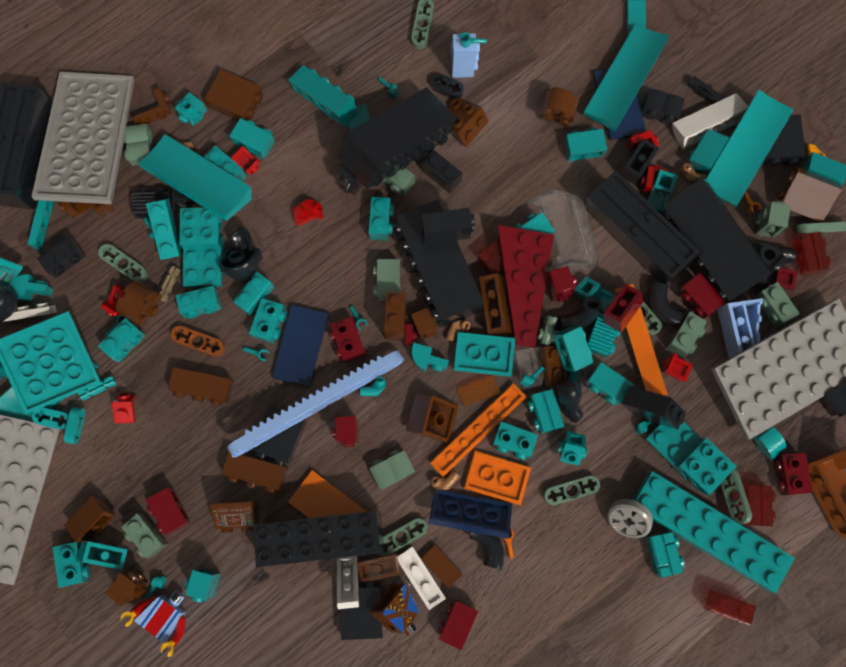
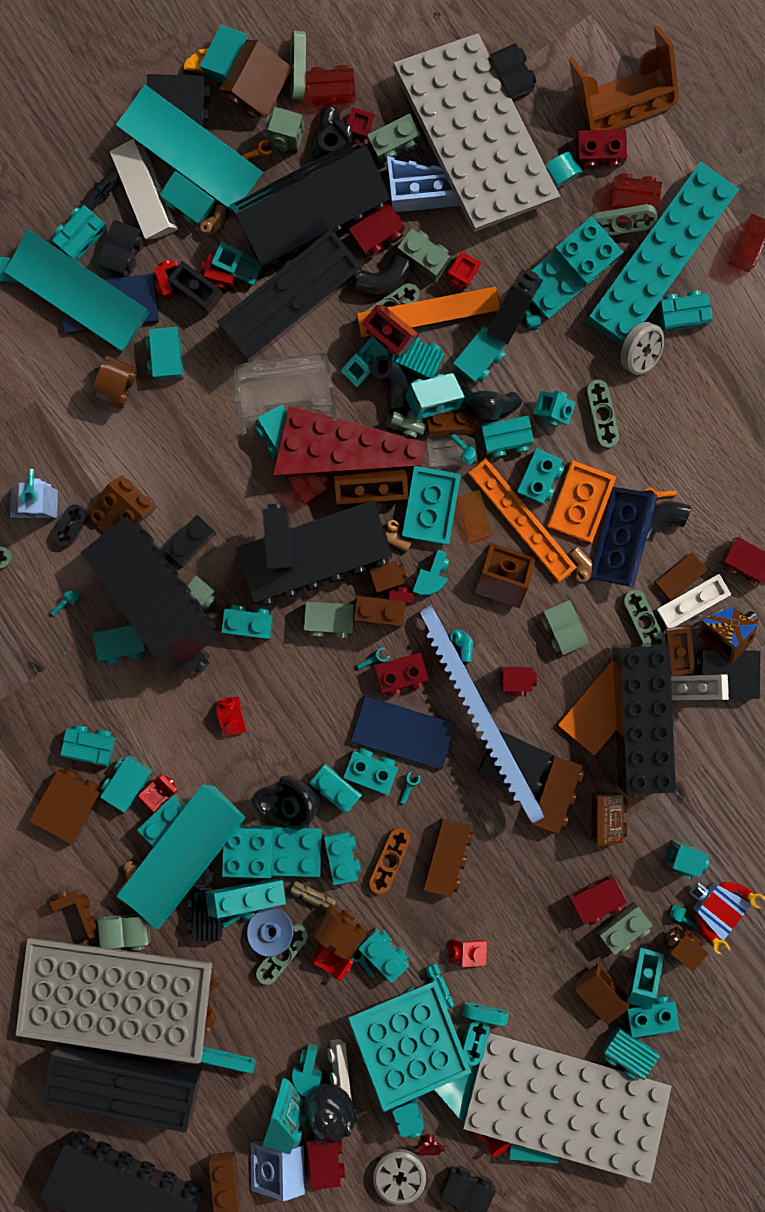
camera: 90 degrees left, 10 degrees up
(39, 549) = (630, 1053): none -> teal brick
(61, 256) = (270, 1031): black brick -> none
(139, 245) = (260, 927): none -> medium blue dish
(190, 109) = (74, 861): teal brick -> none
(279, 109) = (88, 745): none -> teal brick
(323, 94) = (75, 688): teal brick -> none
(560, 284) = (352, 402): dark red brick -> none
(670, 76) = (79, 233): none -> teal brick

